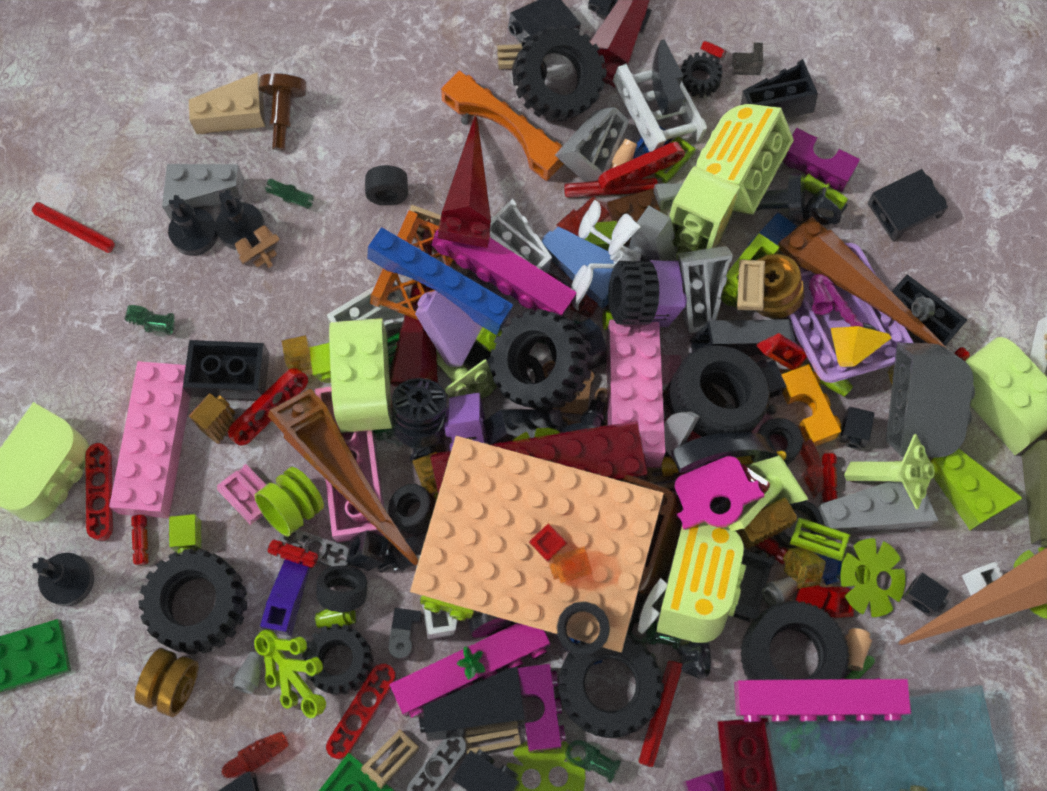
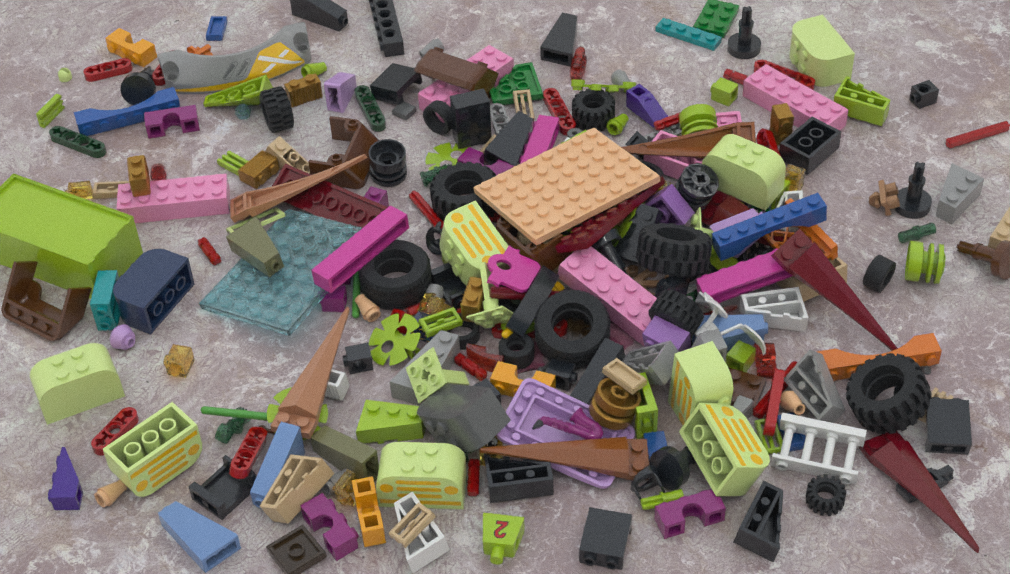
camera: 130 degrees right, 25 degrees down
(31, 307) = (924, 94): none -> black brick
(85, 668) = (688, 34): none -> teal plate
(105, 367) = (862, 103): none -> lime wedge
(151, 321) = (876, 134): clear green connector -> none
(166, 682) = (646, 46): pearl gold wheel -> none
(168, 580) = (680, 74): black tyre -> none
(191, 228) = (934, 177): black piece -> none
(337, 600) = (634, 115): black tyre -> none
(342, 150) = (924, 262): none -> lime wheel
(471, 663) = (535, 145): green plant -> none
(547, 542) = (559, 179): red tile -> none
(571, 566) = (536, 177): clear orange brick -> none
(603, 624) = (502, 177): black tyre -> none
(667, 80) = (832, 452): black slope -> none
(678, 429) = (567, 286): light grey tile -> none
(713, 49) = (840, 515): red tile -> none
(748, 63) = (812, 533): clear smoke panel -> none
(783, 351) = (570, 378): red slope -> none
(856, 344) = (531, 405): yellow slope -> none
(923, 308) = (520, 459): dark grey plate -> none
(986, 287) = (501, 535): none -> lime torso

